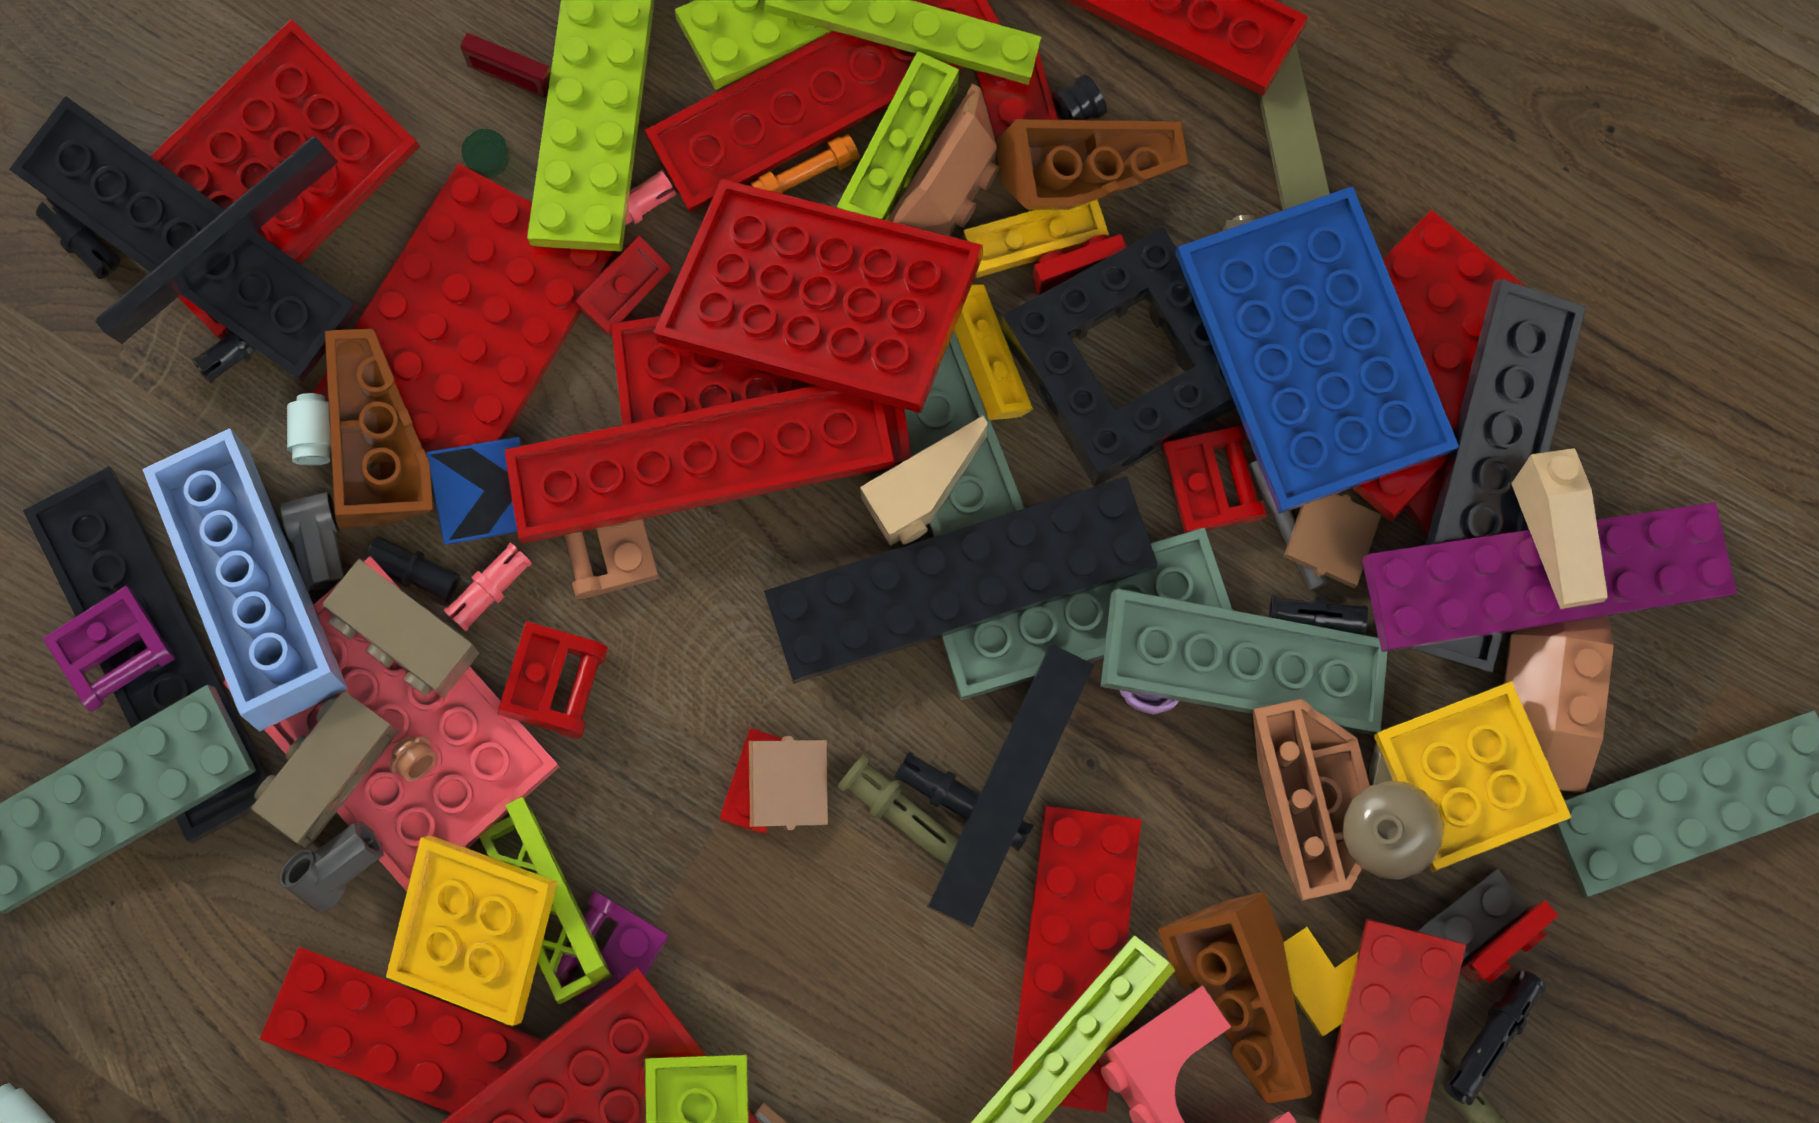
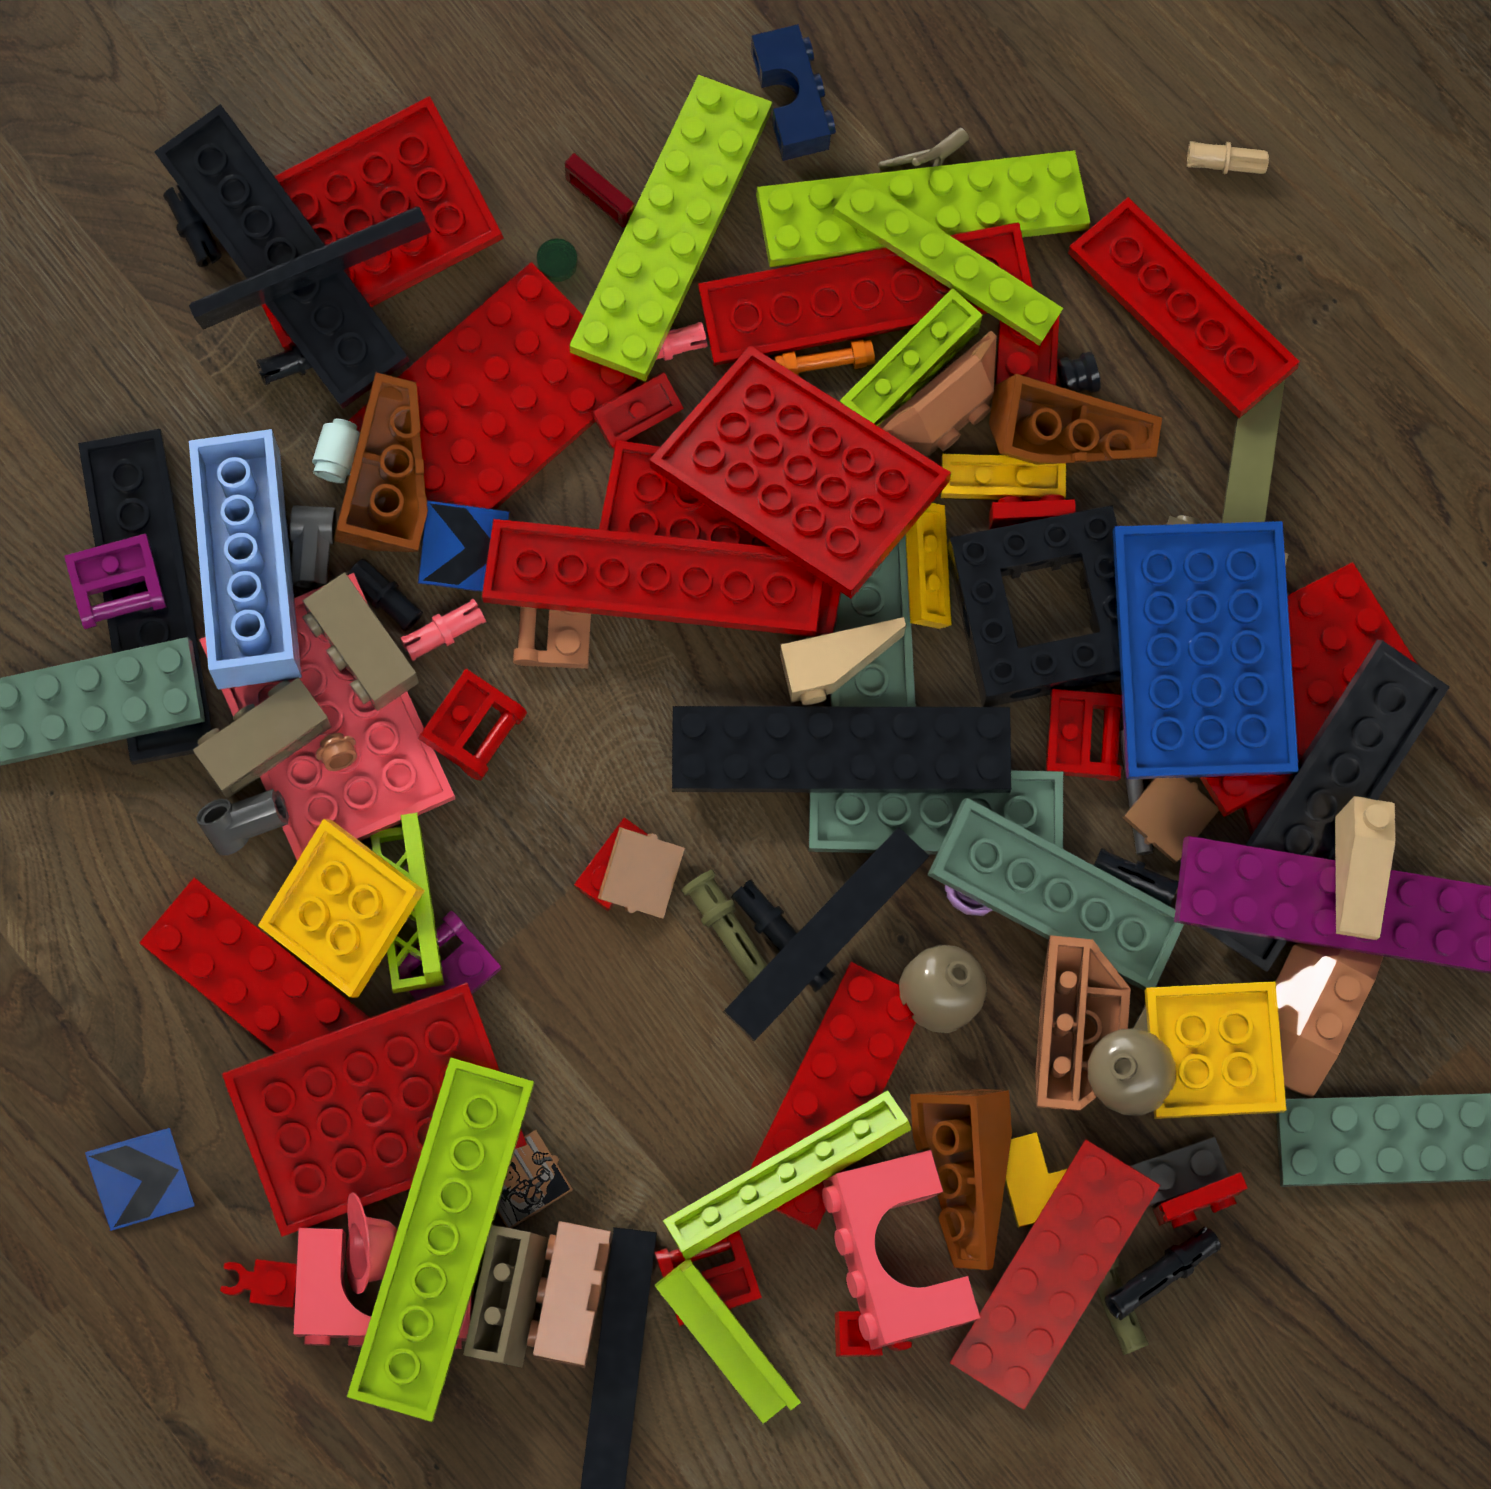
camera: 15 degrees right, 0 degrees up
(1156, 802) = (943, 988): none -> dark tan cylinder

